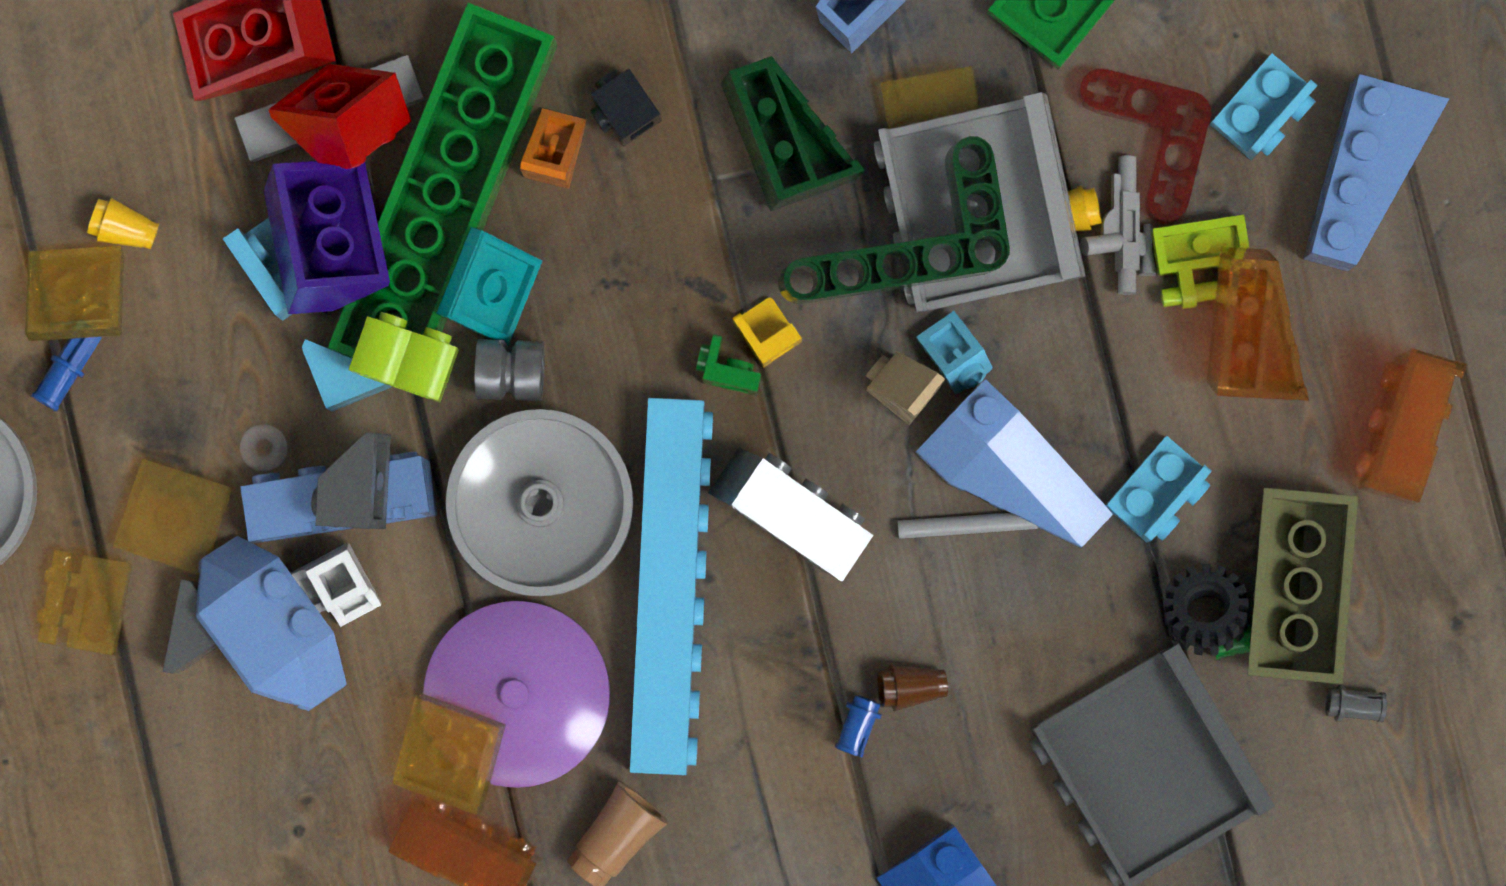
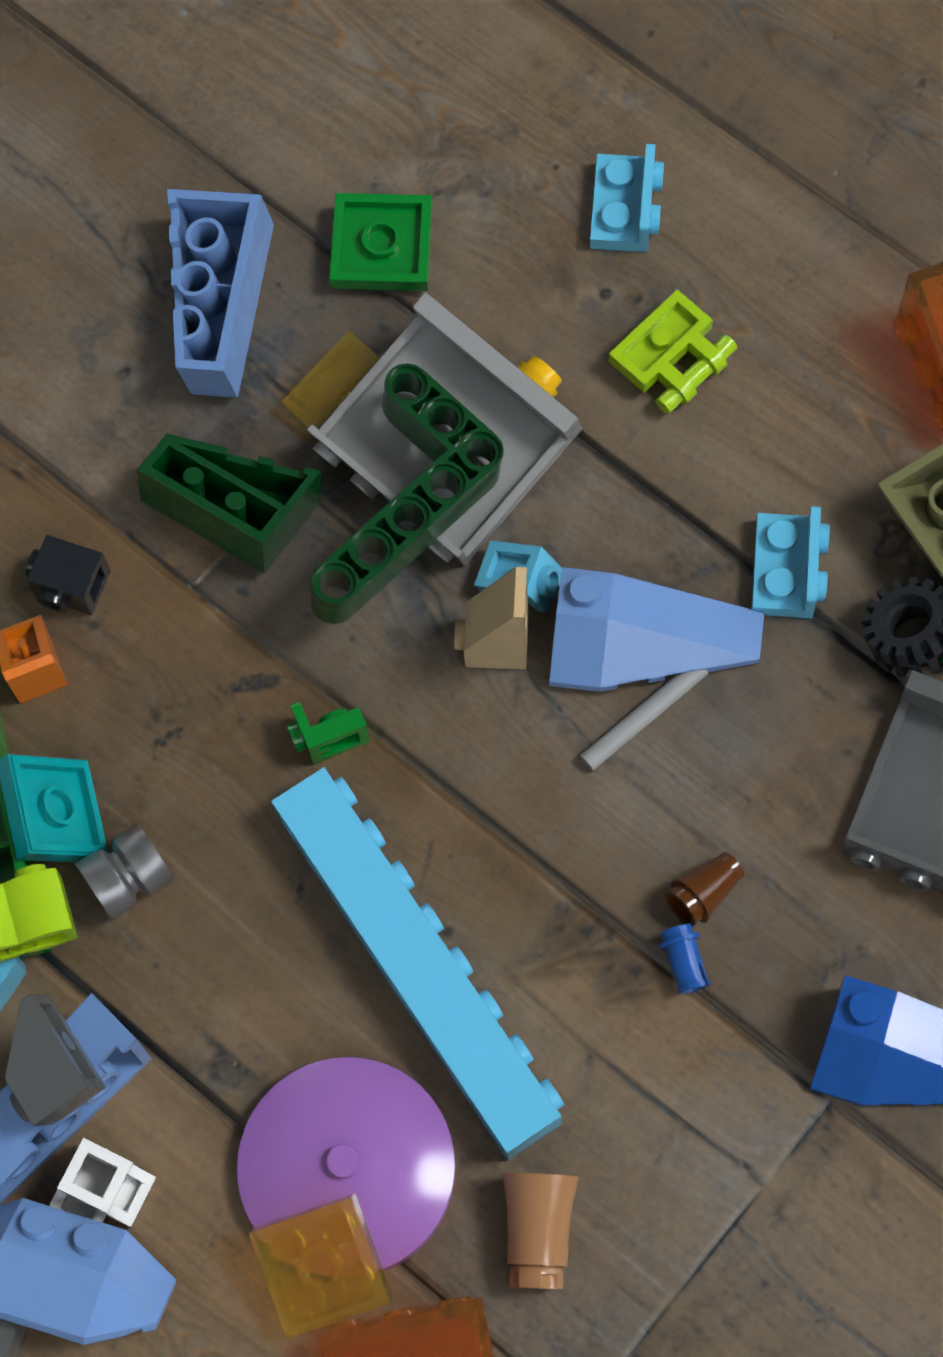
camera: 35 degrees left, 15 degrees down
(539, 502) = (238, 969): light grey dish -> none
(767, 331) = (338, 676): yellow panel -> none
(792, 511) = (479, 808): wedge -> none
(1122, 230) = (585, 377): light grey piece -> none
(1163, 118) = (549, 266): clear red beam -> none
(1252, 330) = (759, 365): clear orange wedge -> none
(1371, 156) = (747, 177): medium blue wedge -> none

